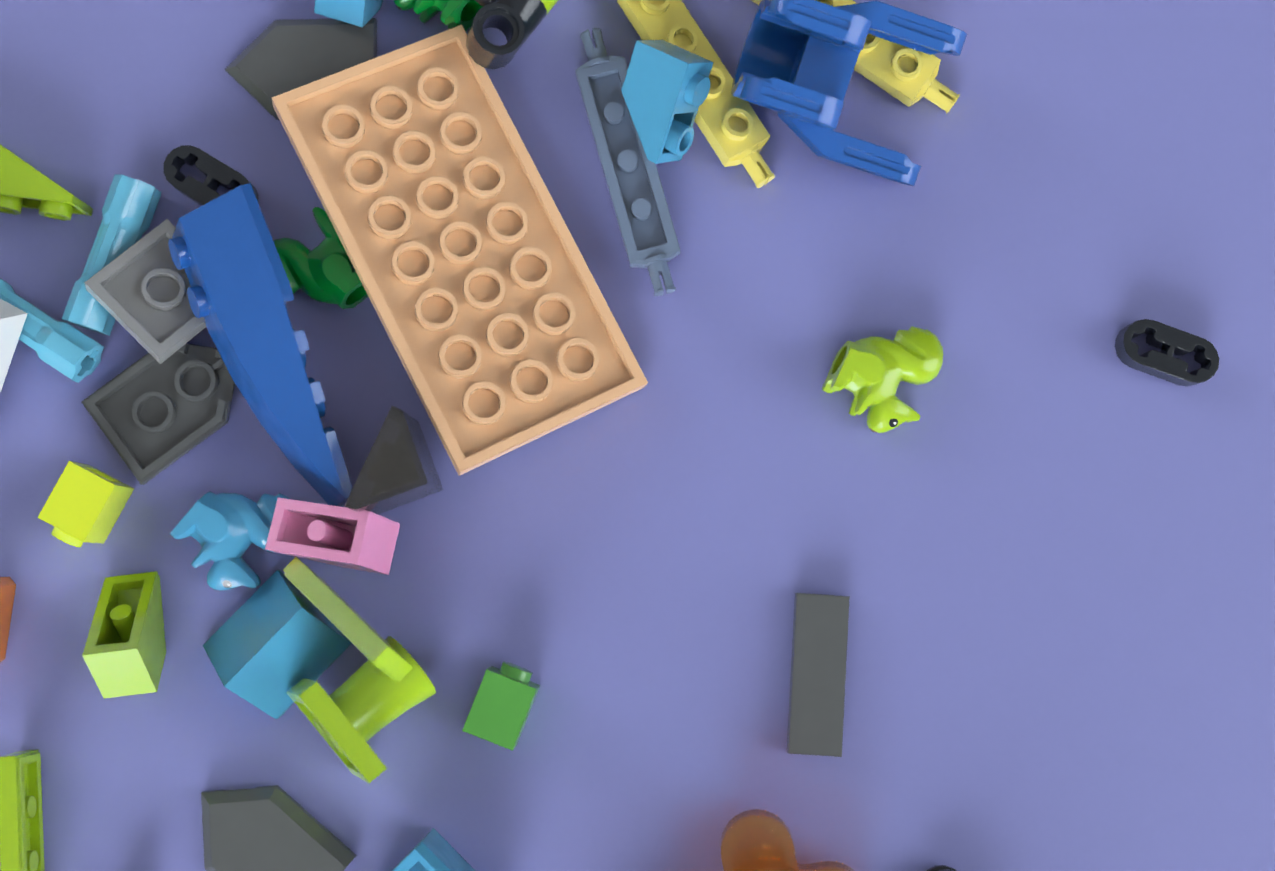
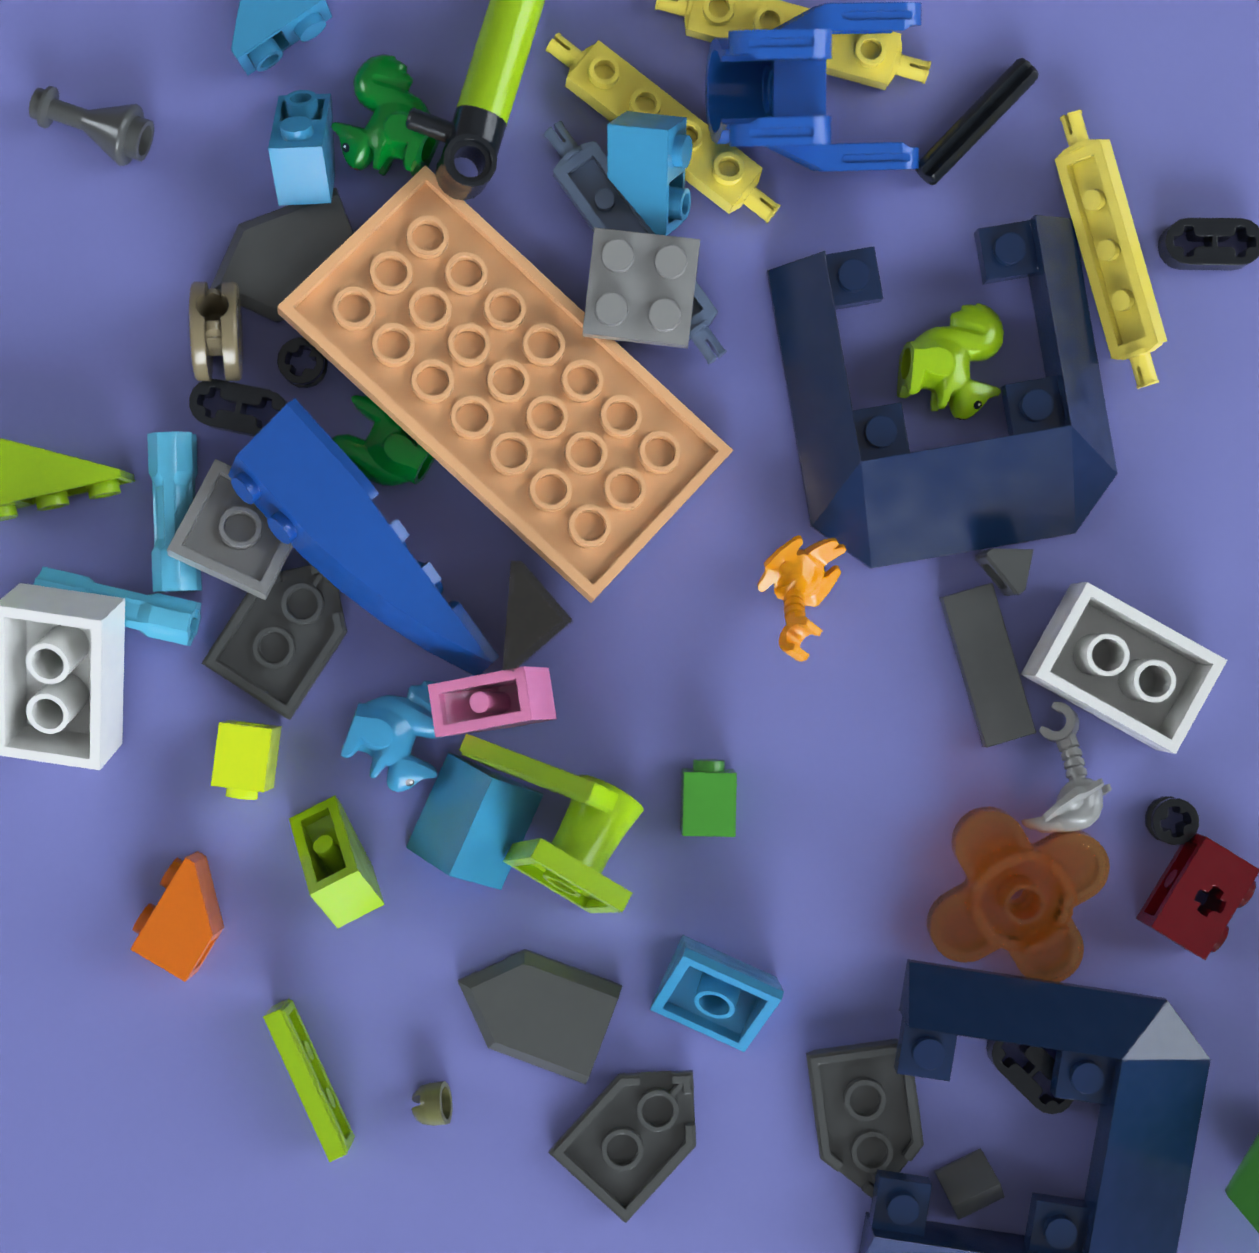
camera: 20 degrees left, 5 degrees up
(211, 103) = (216, 330): none -> dark tan head
(284, 177) = (309, 376): none -> black bush
(615, 202) = (641, 287): none -> light grey plate
(665, 529) = (800, 582): none -> light orange piece
(851, 503) = (963, 496): none -> dark blue slope
(861, 837) = (1081, 798): none -> light grey piece
(868, 587) = (1007, 568): none -> dark grey slope
(948, 724) = (1124, 667): none -> white brick
(984, 163) = (977, 121): none -> black axle
(1069, 324) = (1110, 249): none -> light yellow plate

